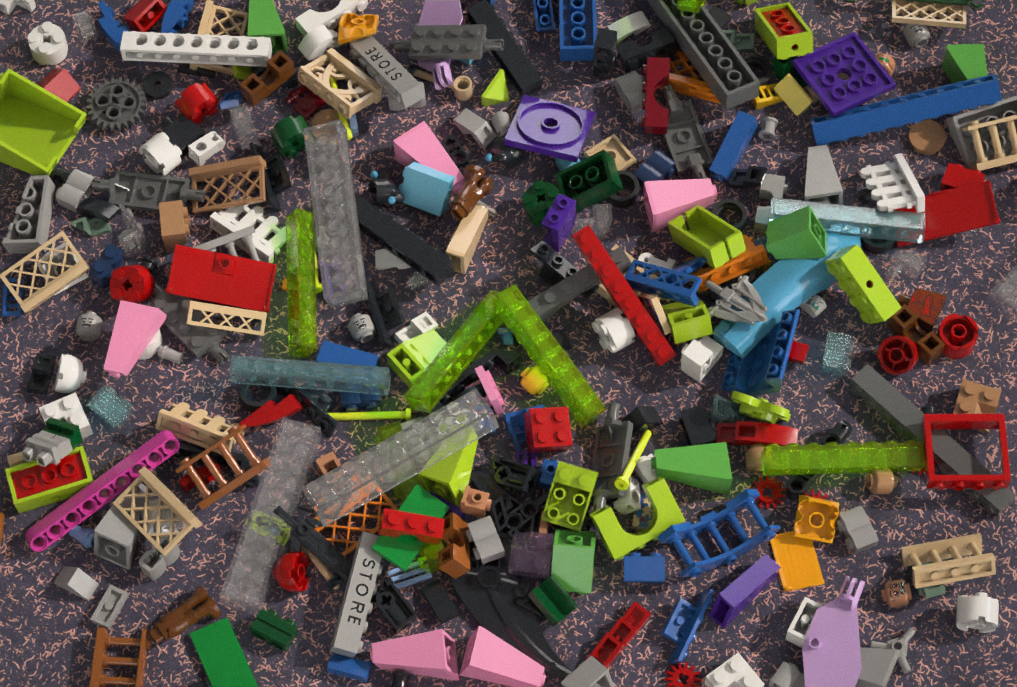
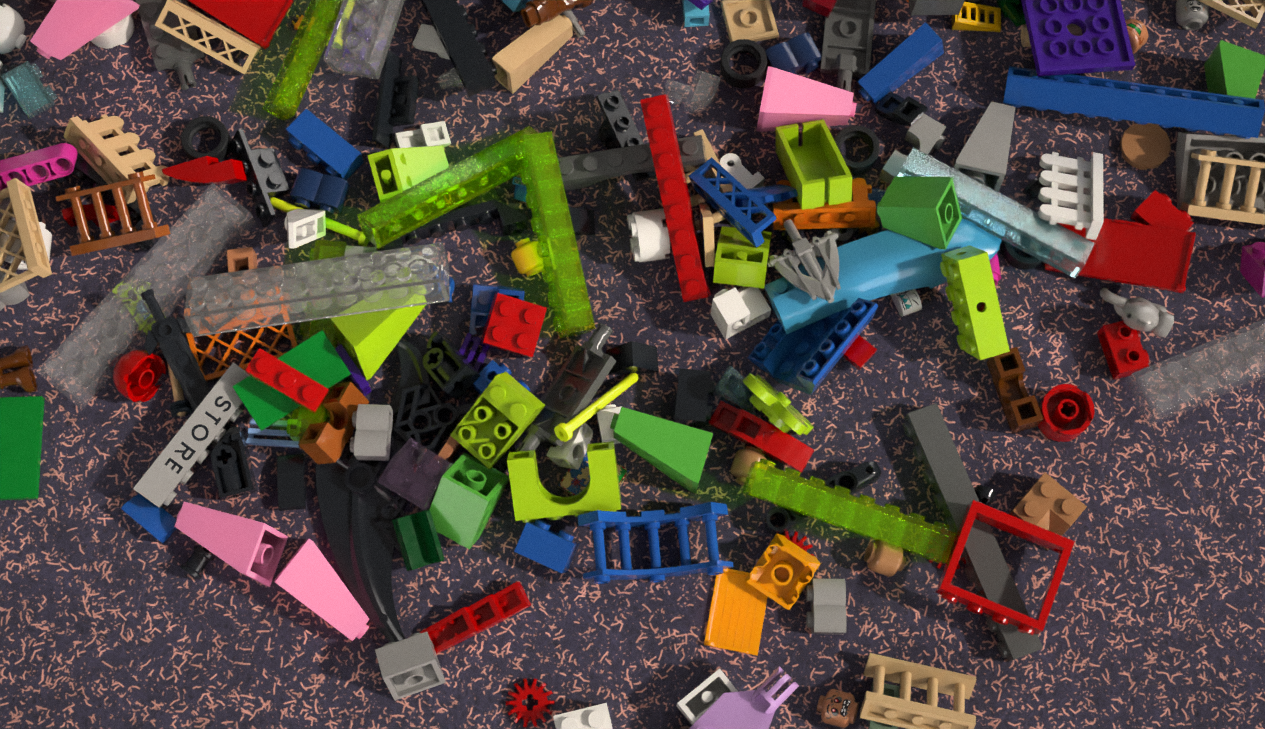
camera: 20 degrees right, 10 degrees up
(170, 354) = (134, 57): light grey pin -> none
(274, 629) = (86, 435): dark green brick -> none
(310, 375) = (266, 145): clear light blue brick -> none
(361, 328) = (360, 110): light grey head -> none
(362, 421) = (304, 226): none -> white slope
(475, 502) = (383, 389): nougat brick -> none
(487, 389) = (463, 247): bright pink plate -> none
(538, 200) = (640, 44): dark green brick -> none
(559, 221) = (646, 74): dark purple panel -> none
(590, 180) = (705, 39): dark green brick -> none
(683, 623) = (563, 633): blue bracket -> none
(744, 590) = (654, 624): dark purple slope -> none
(768, 128) = (954, 58): light grey bush -> none
(776, 493) = (751, 517): red gear -> none
(793, 94) = (1004, 29): light yellow slope -> none
(836, 353) = (906, 372): clear light blue brick -> none
(890, 354) = (979, 407): red cylinder -> none
(904, 262) = (1044, 292): clear brick -> none
(925, 305) = (1041, 358): reddish brown torso -> none
(976, 278) = (1122, 349): none -> red brick
(978, 249) = (1141, 313): none -> light grey animal

